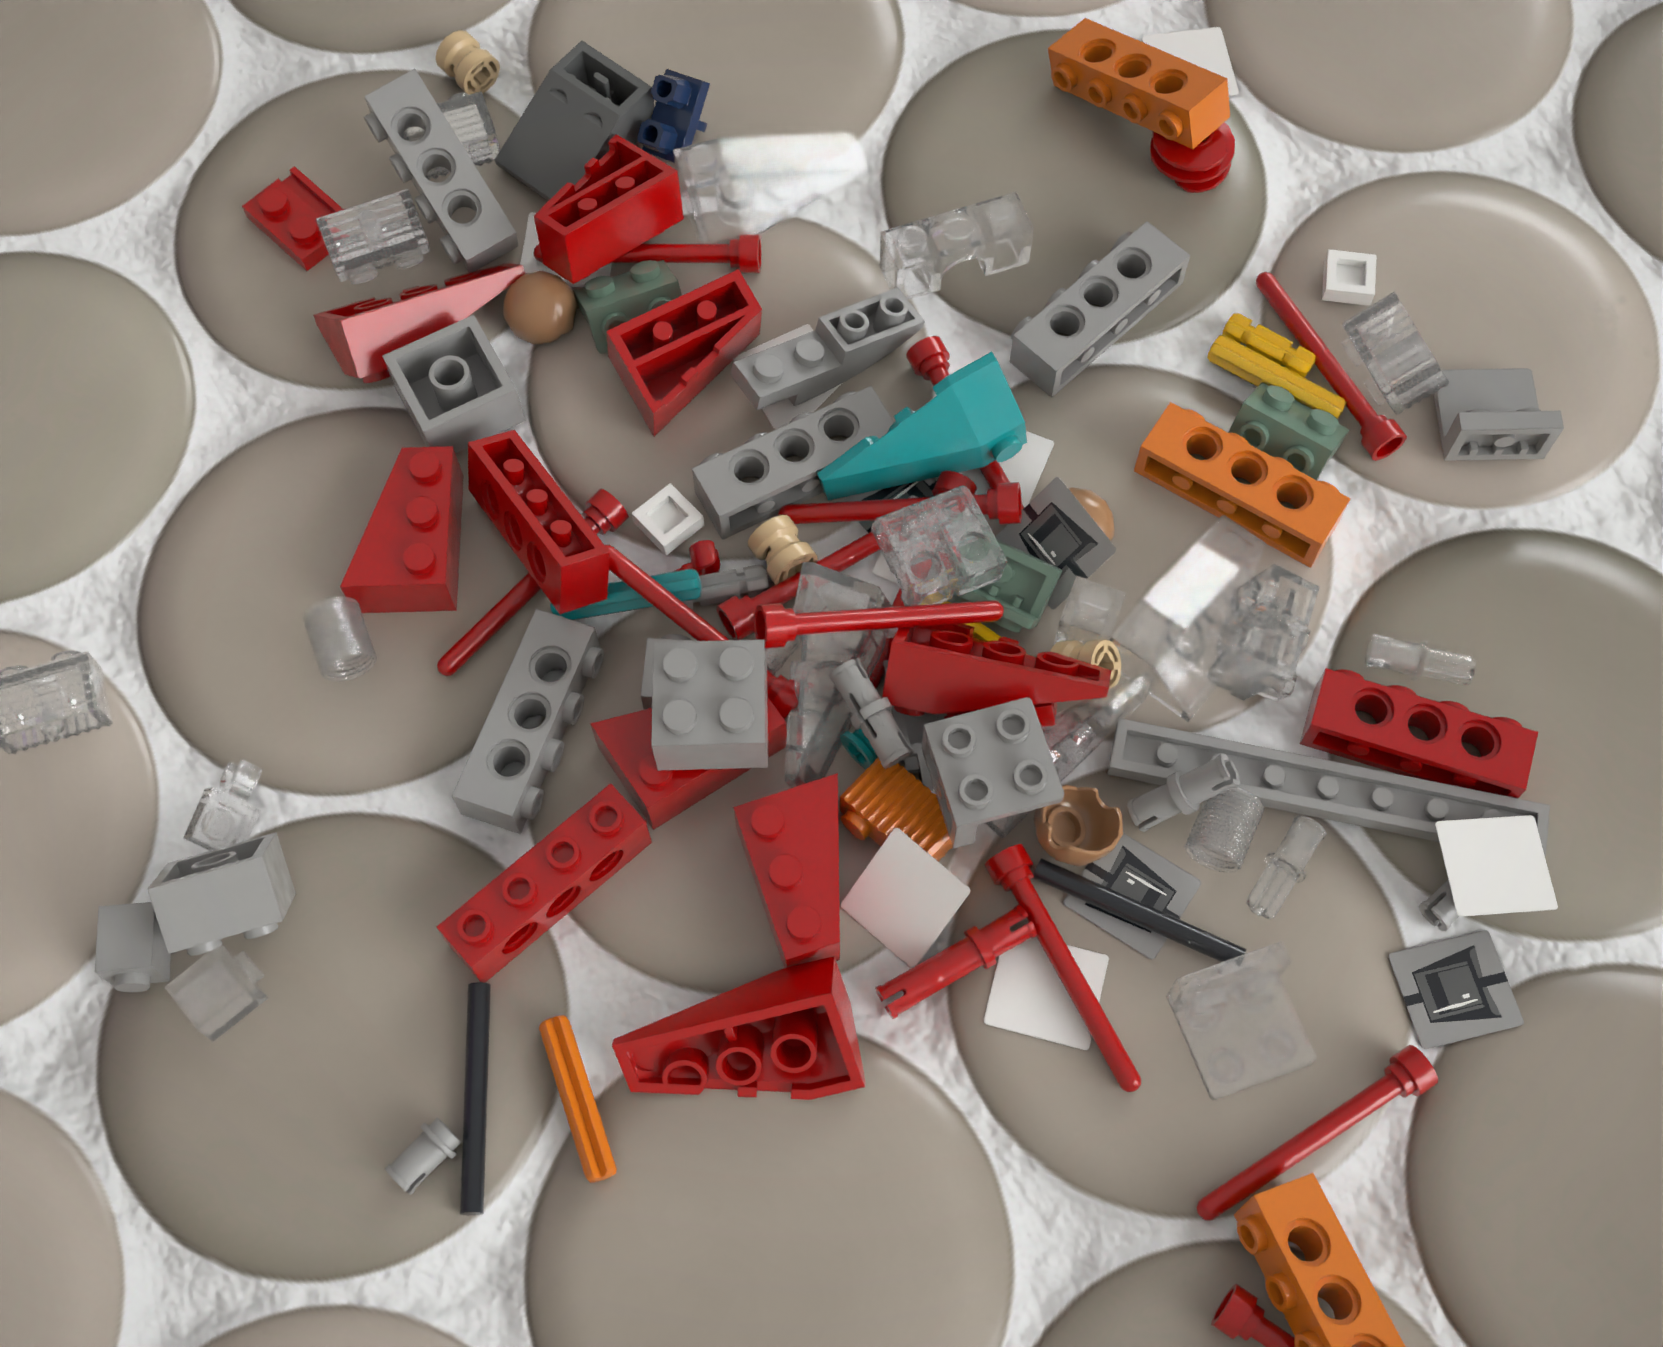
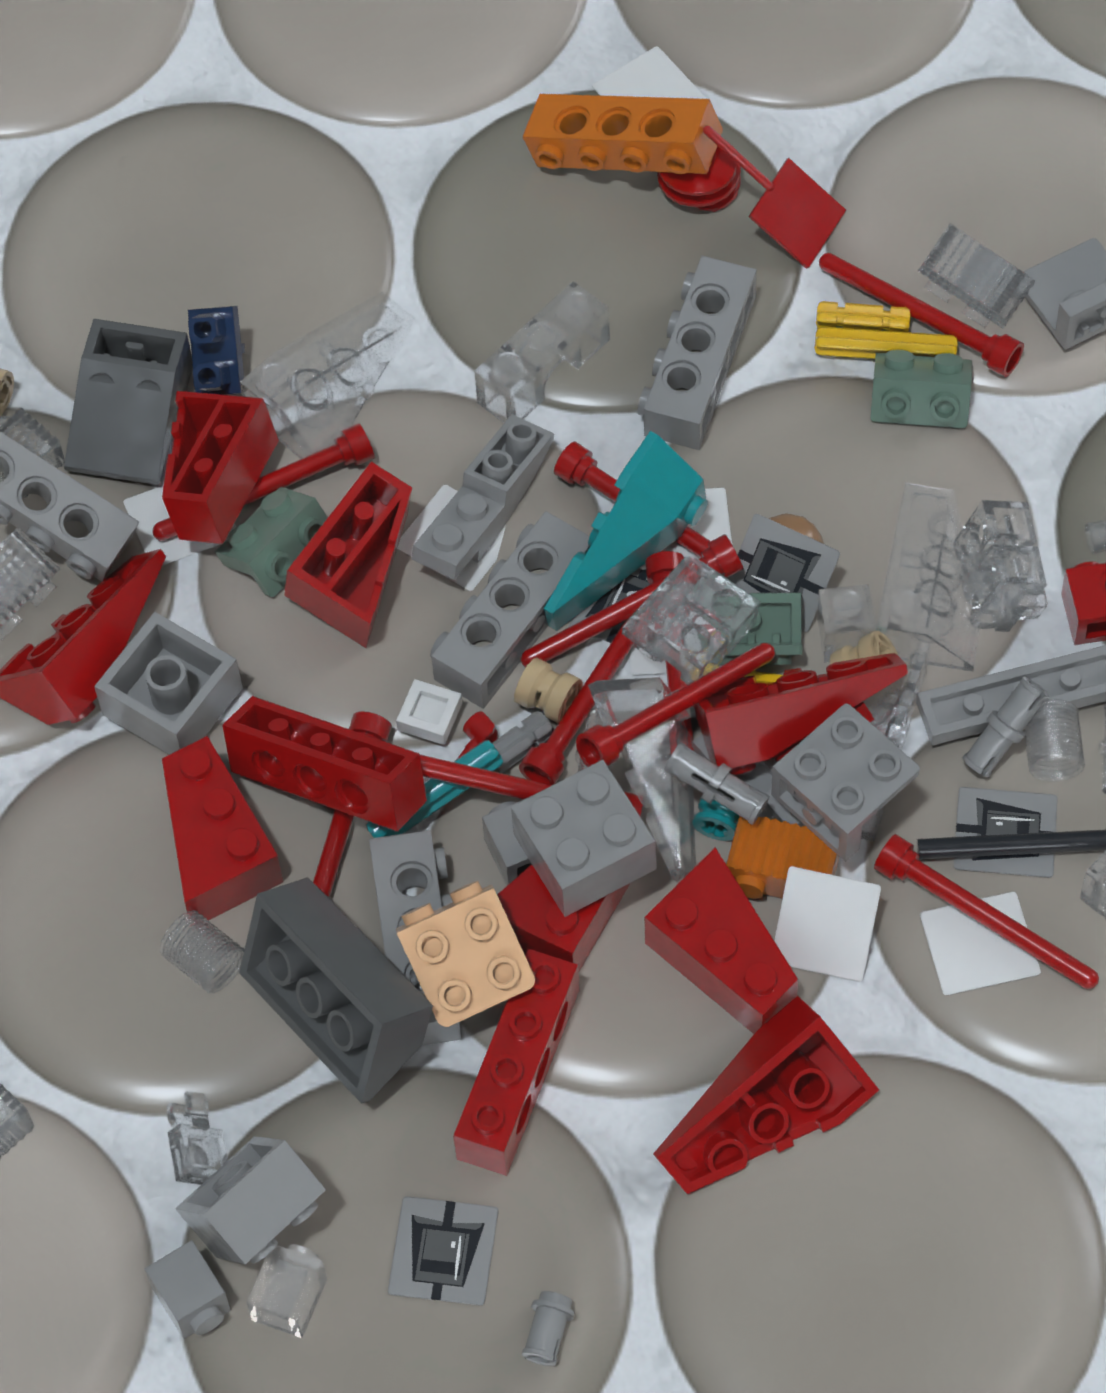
camera: 25 degrees left, 5 degrees down
(383, 1026) = (443, 1250): none -> sticker
(421, 729) = (333, 987): none -> dark grey slope
(475, 1100) = (560, 1264): black bar -> none
(540, 307) = (194, 581): medium nougat hair -> none
(542, 759) = (465, 954): none -> light nougat bracket
(577, 1099) = (647, 1220): orange axle -> none
(975, 950) = (906, 937): red pin -> none
(1078, 827) = (936, 798): medium nougat hair -> none
(1254, 506) = (888, 464): orange brick -> none
(1259, 216) = (792, 207): none -> red piece
(1349, 277) = (899, 226): white plate -> none

